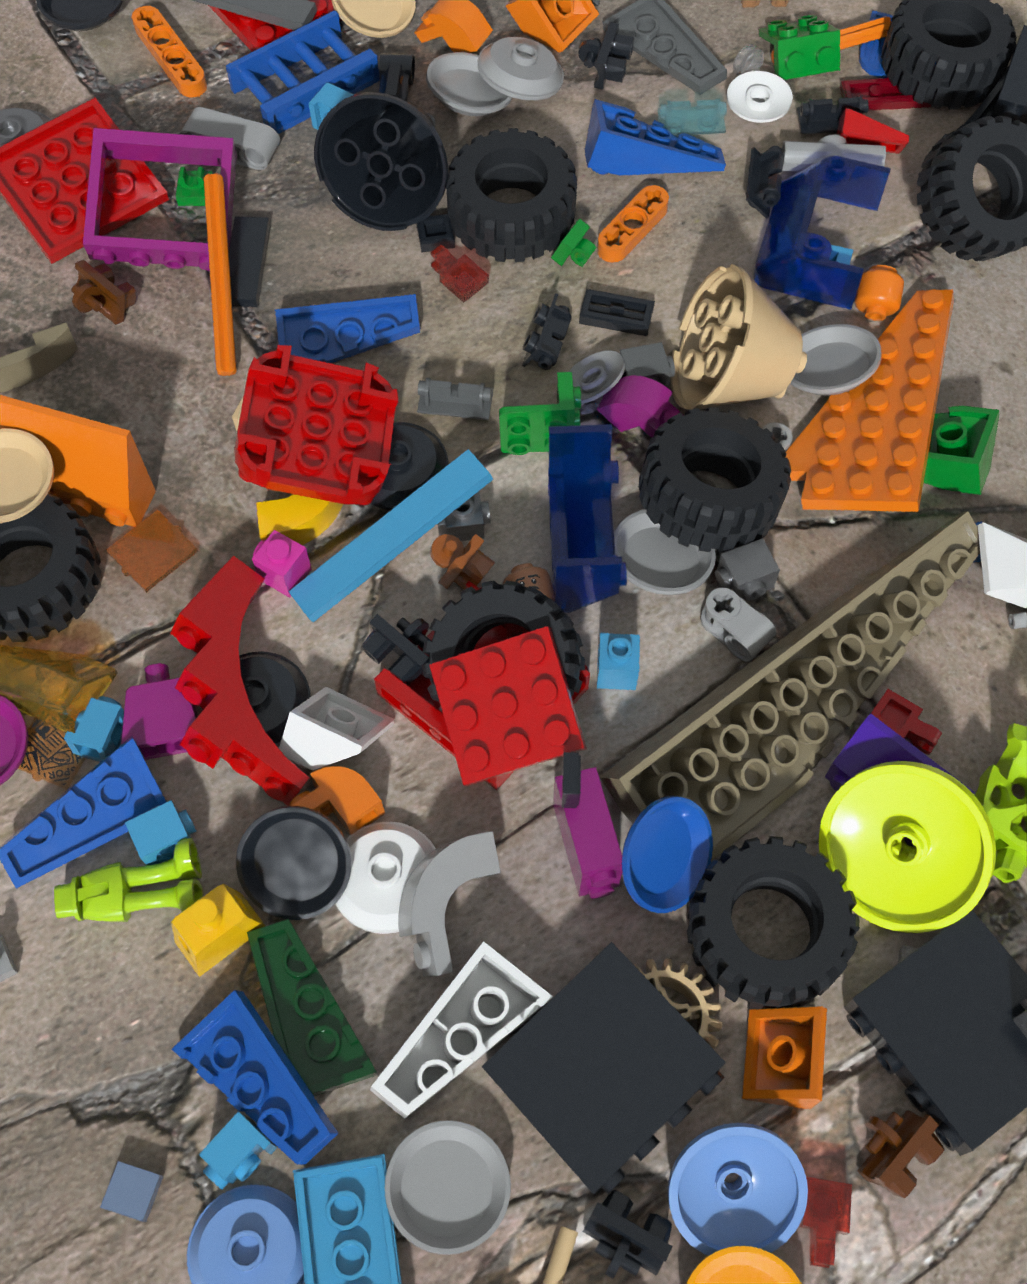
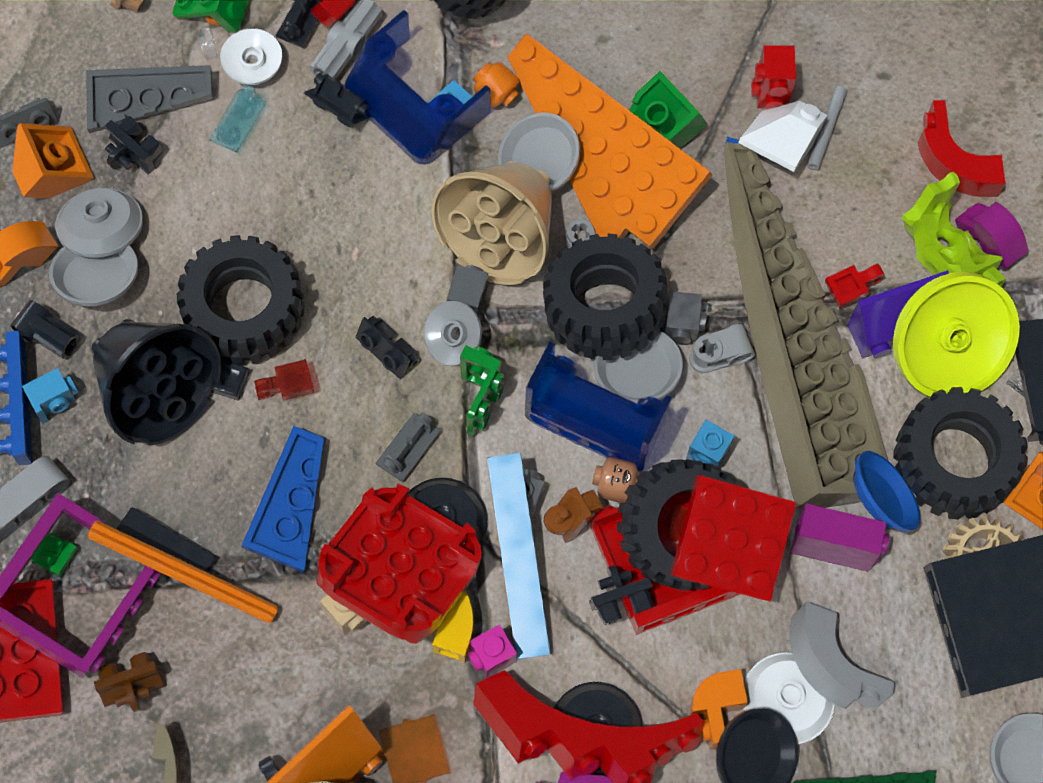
camera: 65 degrees left, 5 degrees up
(330, 729) = (660, 678): white slope -> none
(467, 1021) = (935, 700): white wedge -> none
(571, 779) = (815, 524): black tile -> none
(575, 246) = (314, 278): green tile -> none
(616, 317) = (376, 301): black tile -> none
(629, 236) = (313, 235): orange beam -> none
(630, 147) = (243, 177): blue wedge -> none
(637, 403) = (504, 310): magenta brick -> none

